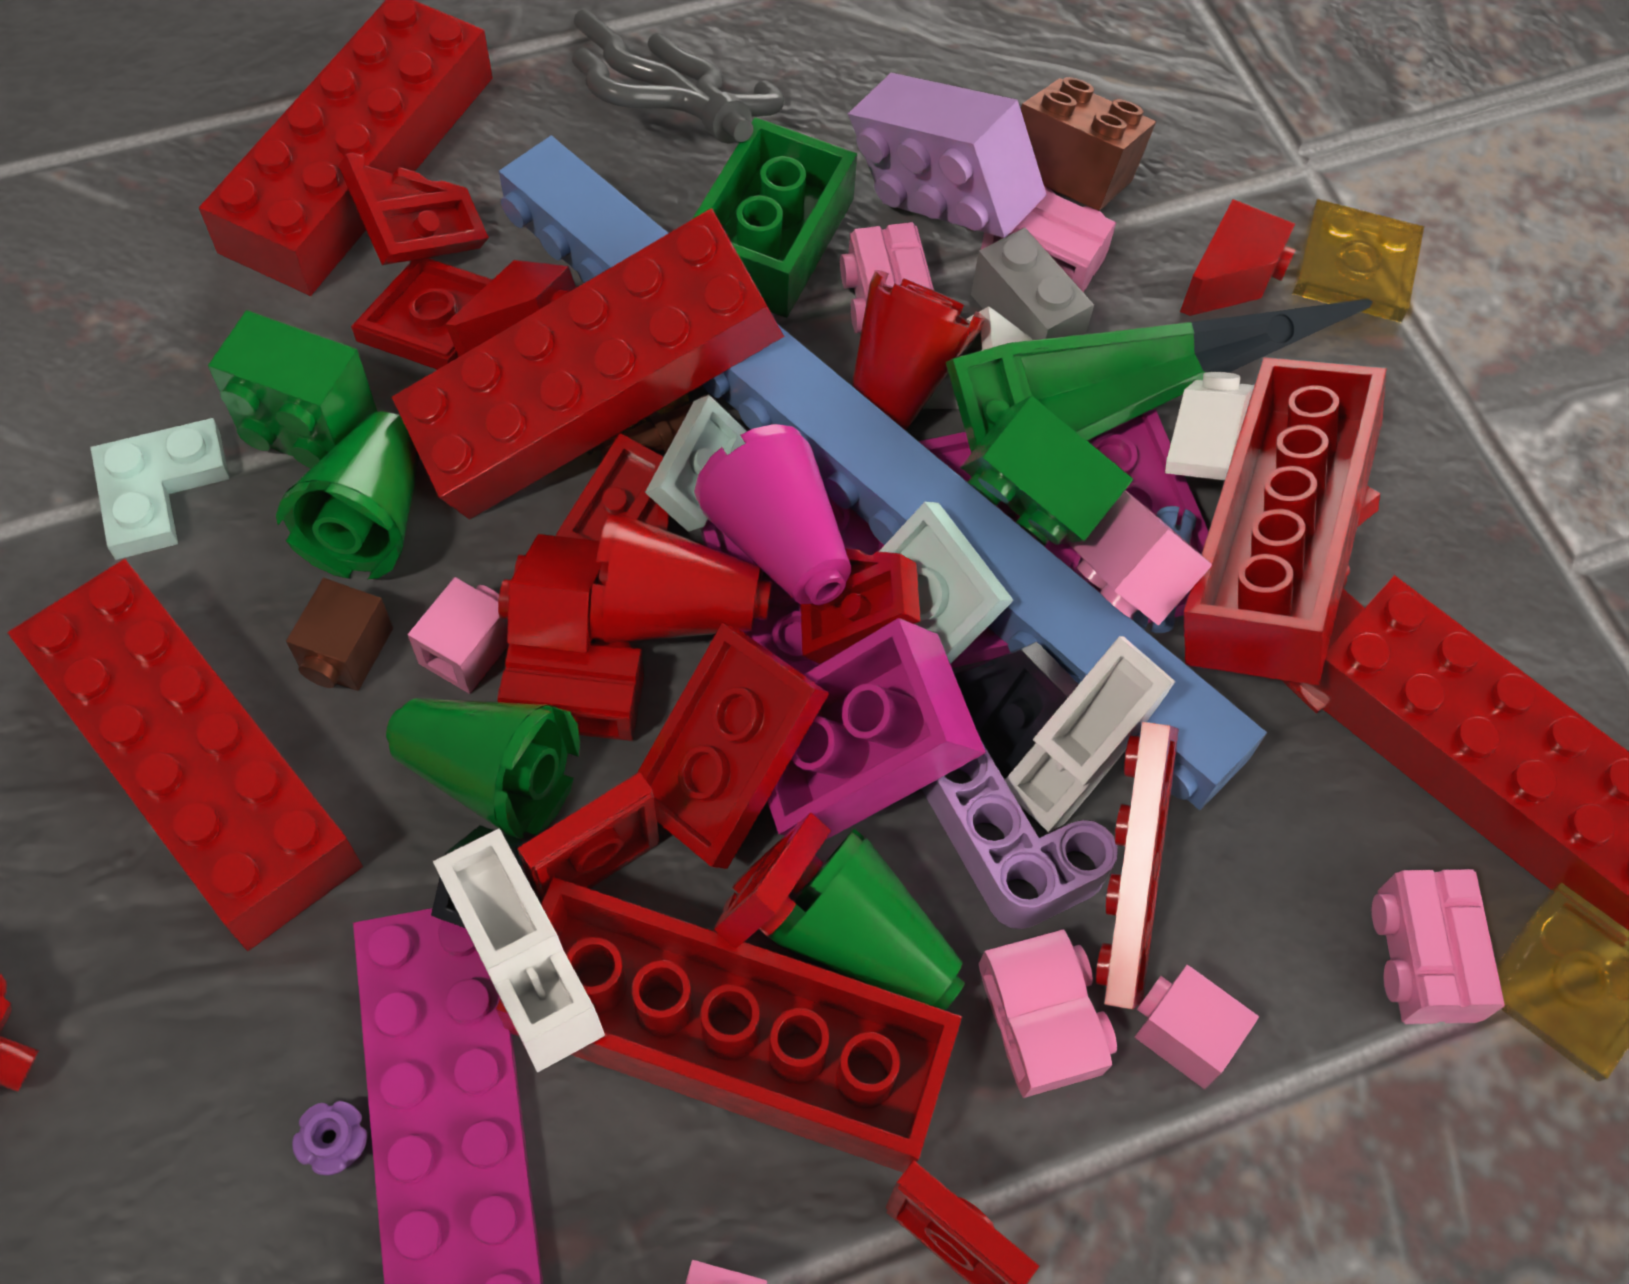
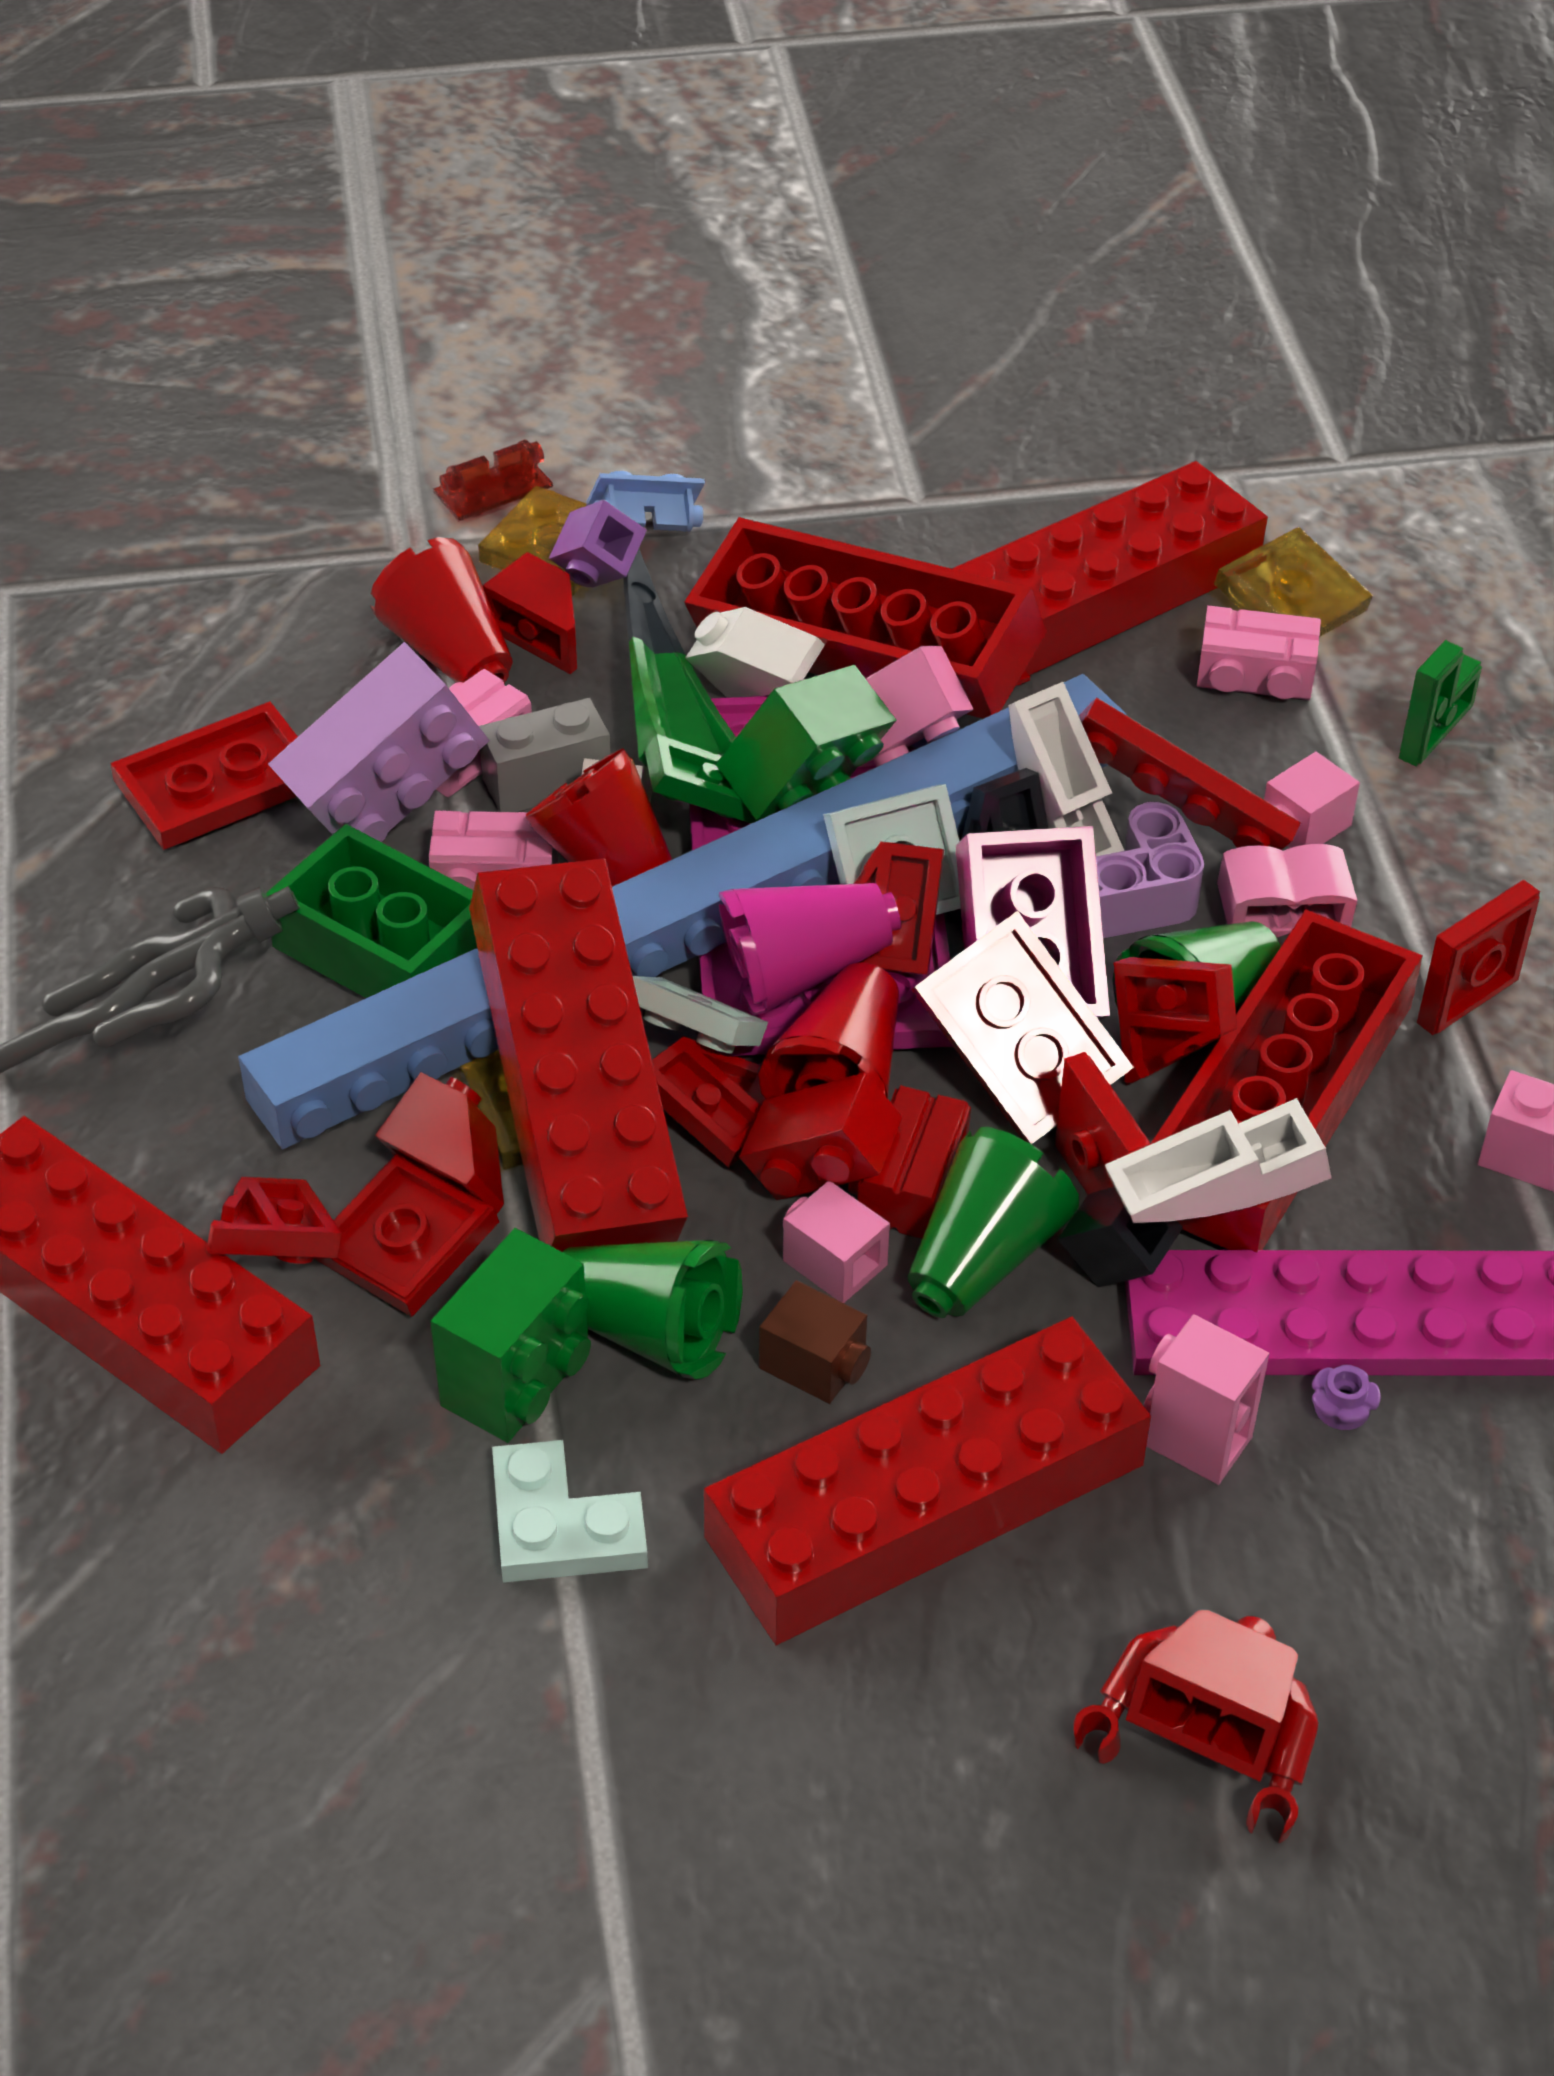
camera: 75 degrees left, 15 degrees down
(262, 977) = (1204, 1397): none -> bright pink brick
(935, 51) = (207, 775): none -> red plate
(1085, 141) = (339, 662): copper brick -> none
(1187, 183) = (442, 610): none -> red cone
(1321, 274) = (597, 544): none -> medium lavender brick
(1418, 1166) = (1439, 700): none -> green tile
(1420, 201) = (475, 488): none -> clear red hinge
(1424, 294) = (665, 496): none -> light blue hinge

